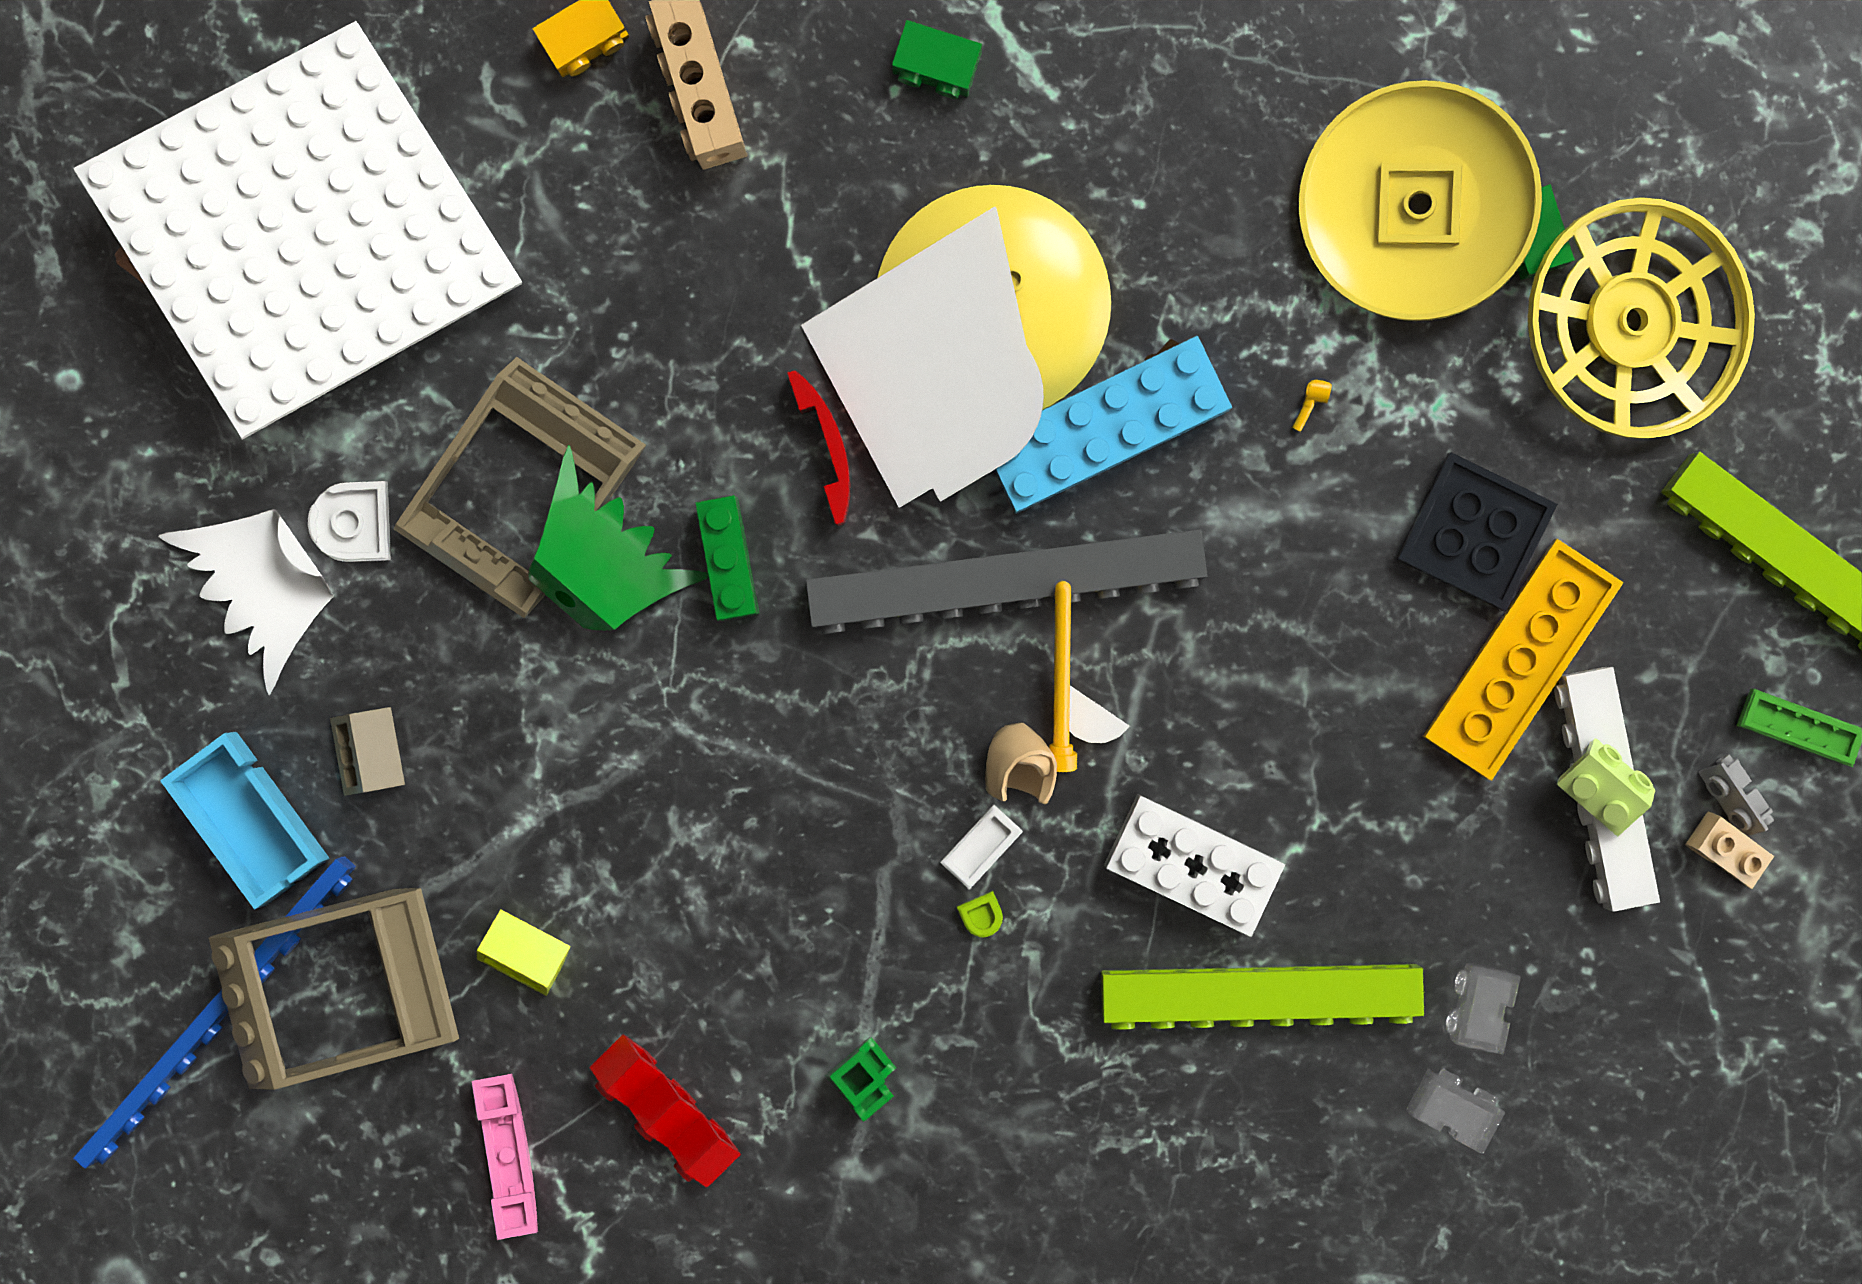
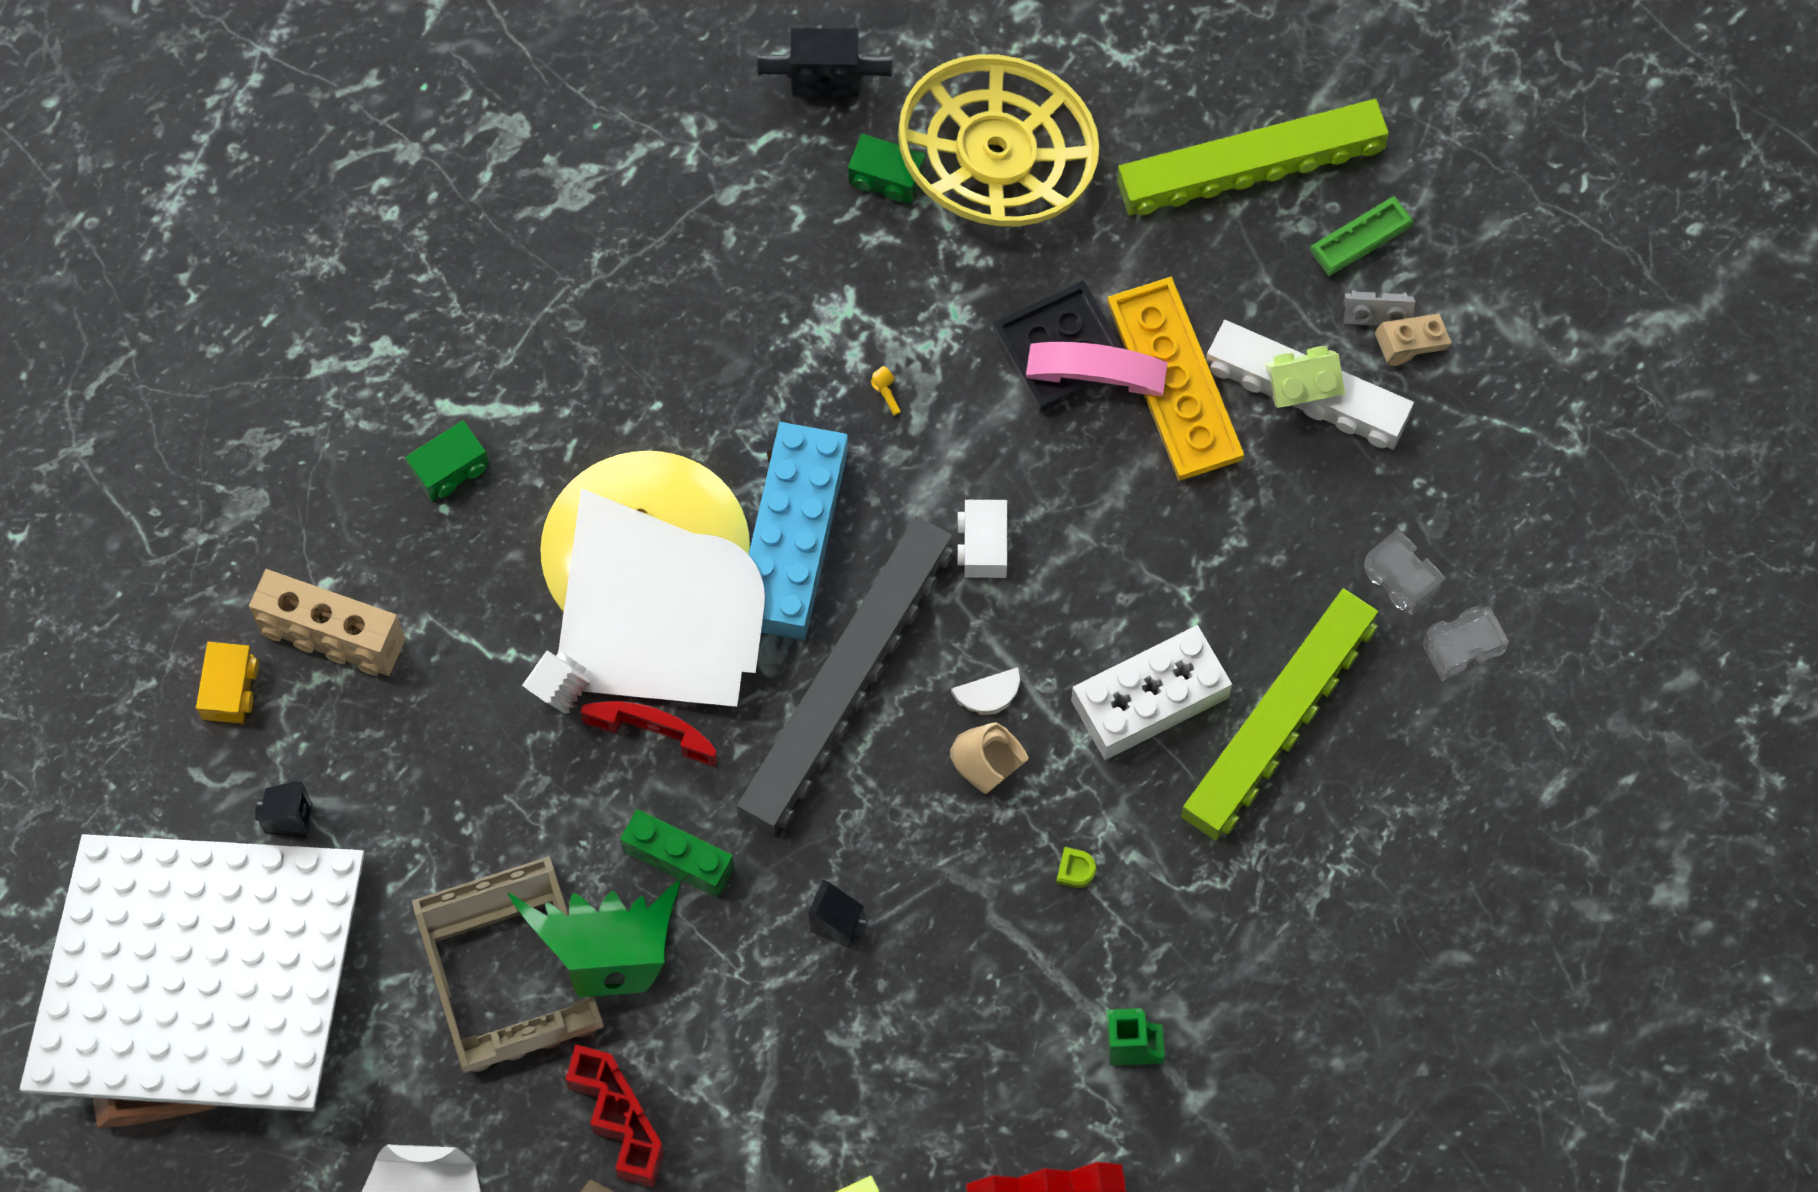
camera: 50 degrees left, 20 degrees down
(352, 522) = (433, 1107): white tile -> none
(458, 690) = (617, 1114): none -> red brick
(504, 183) = (285, 810): none -> black slope
(774, 745) = (836, 915): none -> black slope
(797, 330) = (557, 680): none -> white brick
(981, 846) = (1025, 833): white tile -> none
(1062, 750) = (944, 681): yellow piece -> none
(1230, 604) = (985, 538): none -> white brick
(1411, 143) = (797, 175): light yellow dish -> none
(1475, 583) = (1098, 364): none -> bright pink slope
(1597, 93) = (824, 63): none -> black brick

